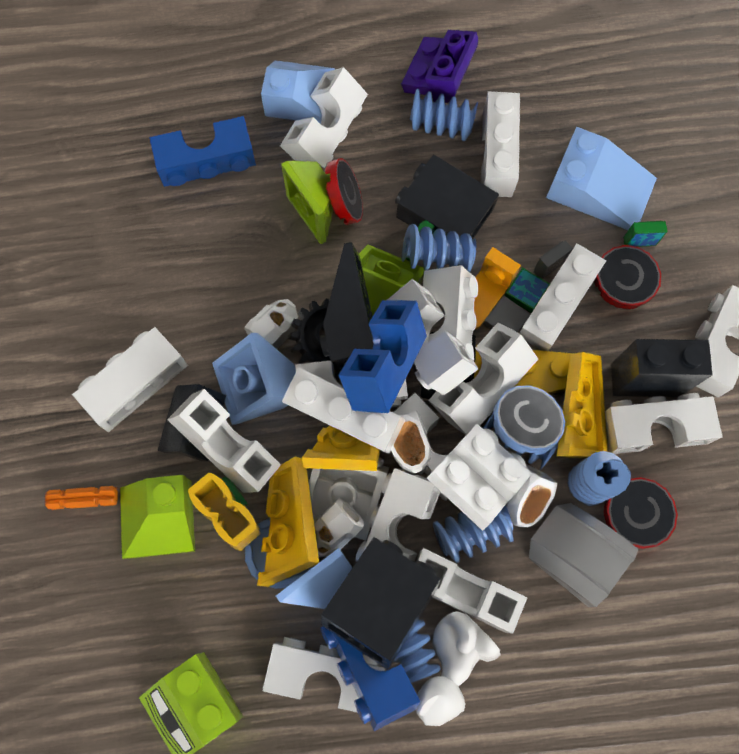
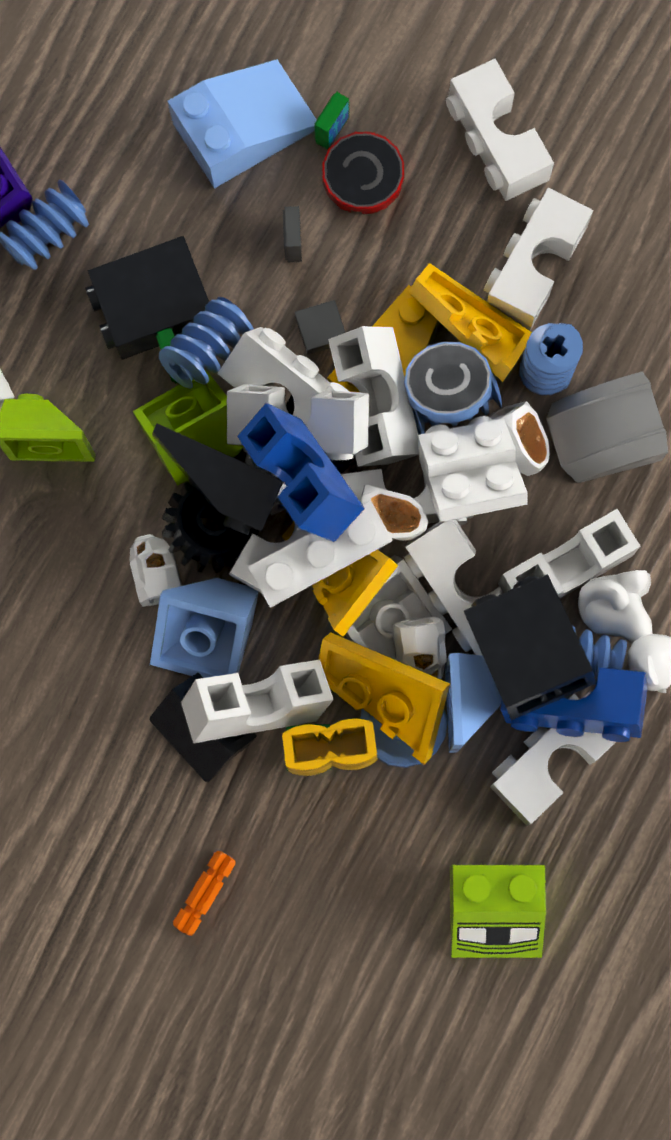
camera: 50 degrees left, 5 degrees up
(129, 379) = (109, 760): white brick -> none
(157, 517) = (280, 827): lime slope -> none
(344, 191) = (61, 393): tile -> none
(467, 534) = (513, 524): medium blue piece -> none
(493, 281) = (270, 308): light orange bracket -> none
(501, 139) = (108, 177): white arch -> none
(527, 290) = (304, 283): tile -> none
(562, 298) = (343, 256): white brick -> none
(642, 513) = (613, 341): black tile -> none
(661, 367) = (485, 216): black brick -> none

